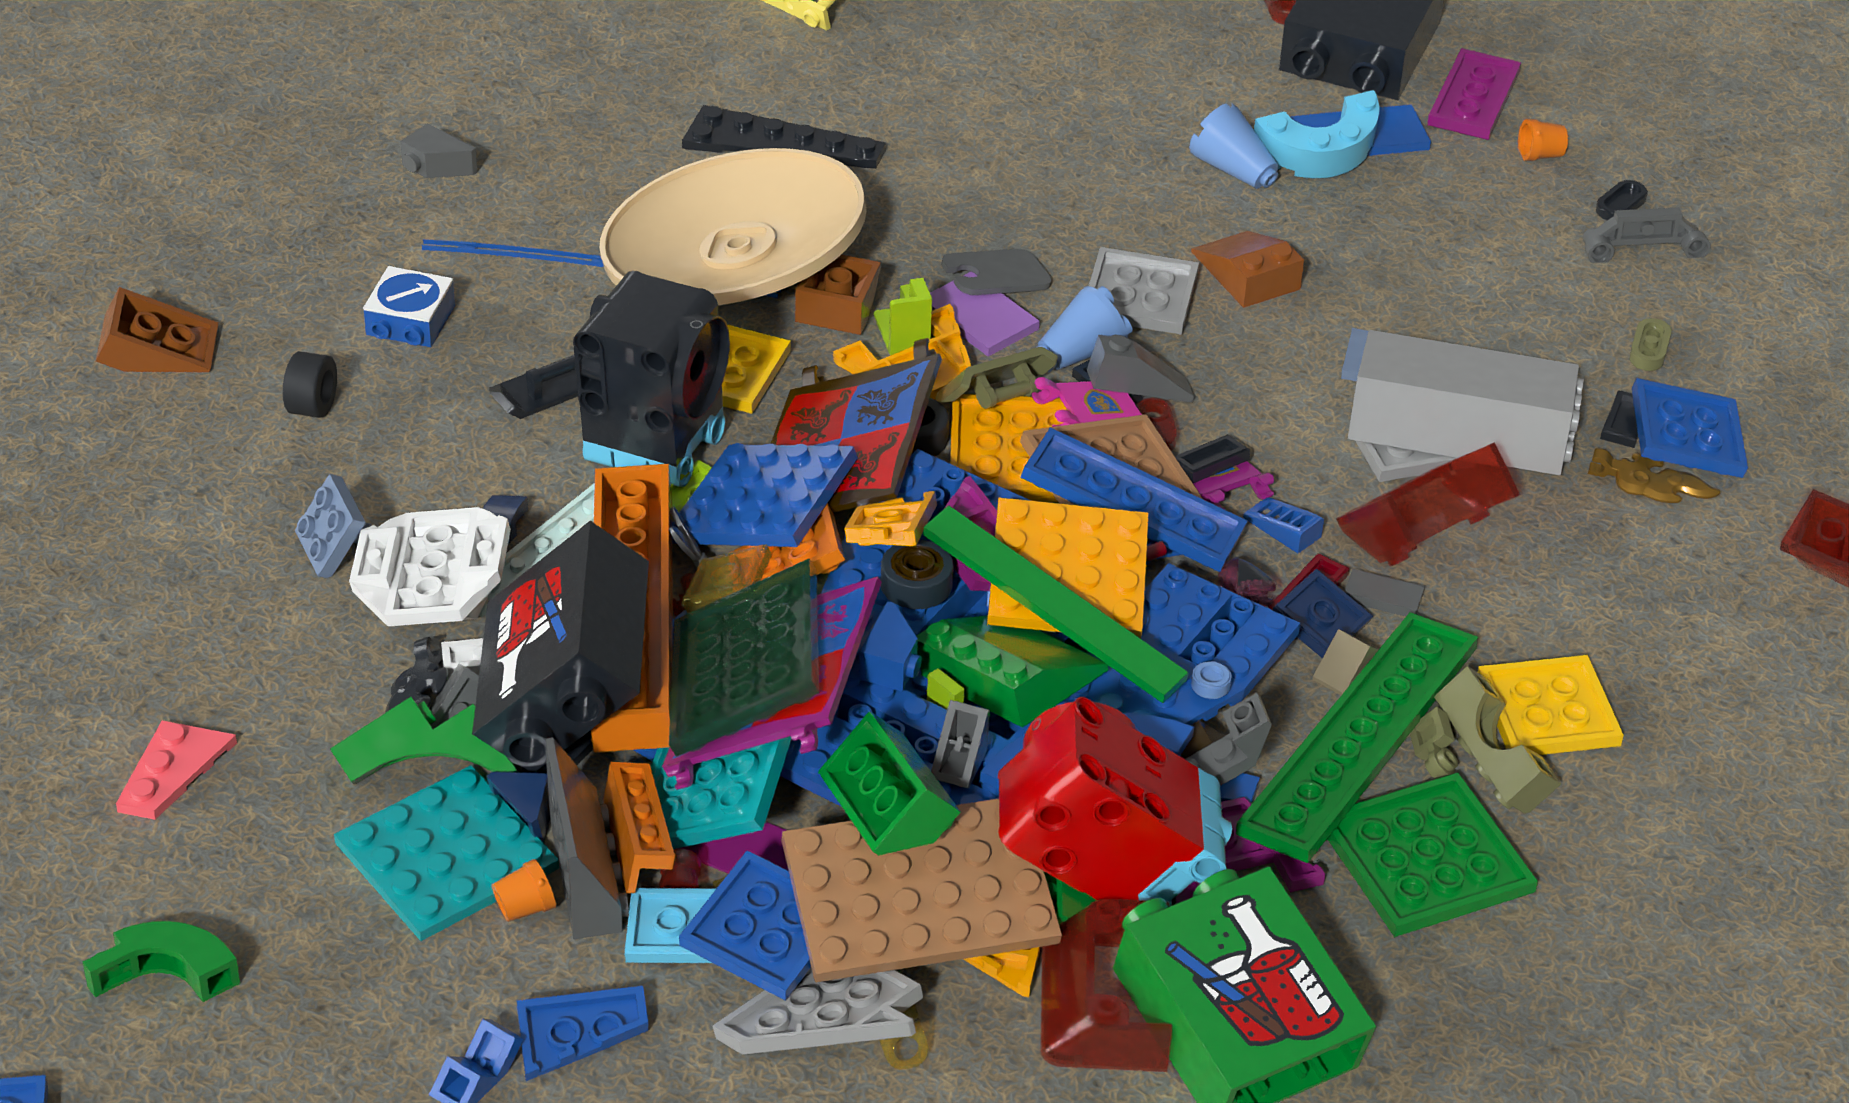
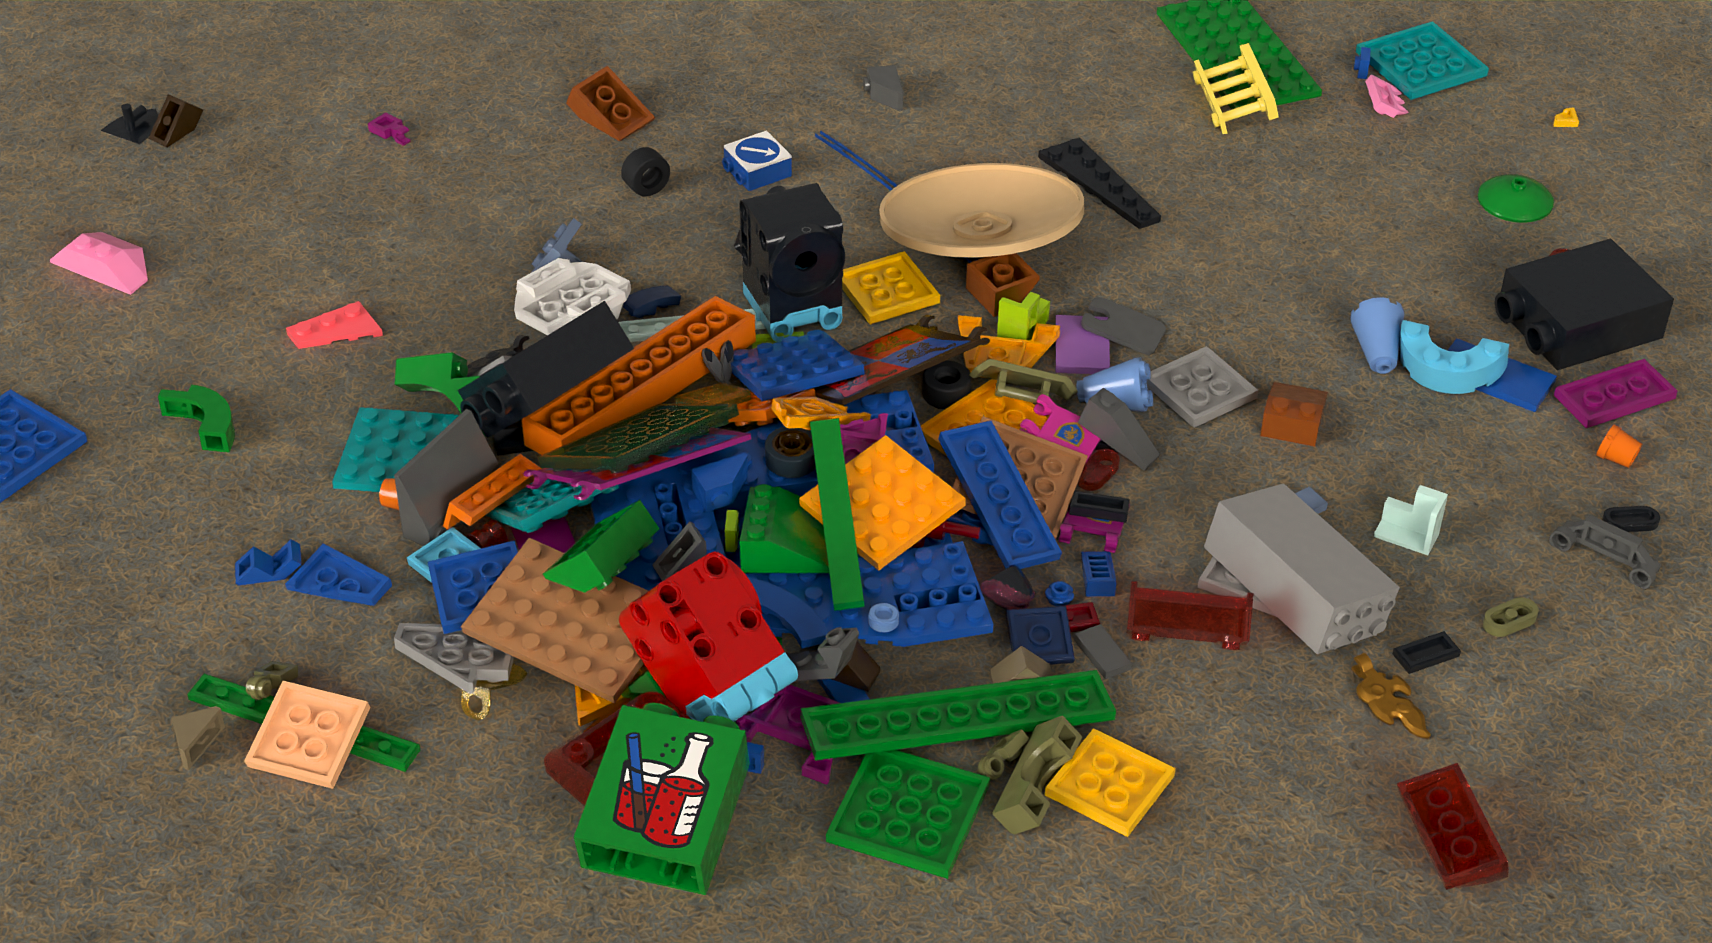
camera: 45 degrees right, 0 degrees up
(1279, 564) = (1059, 593): none -> blue plate
(1487, 307) = (1413, 525): none -> light aqua panel
(1689, 428) = (1454, 681): blue plate -> none

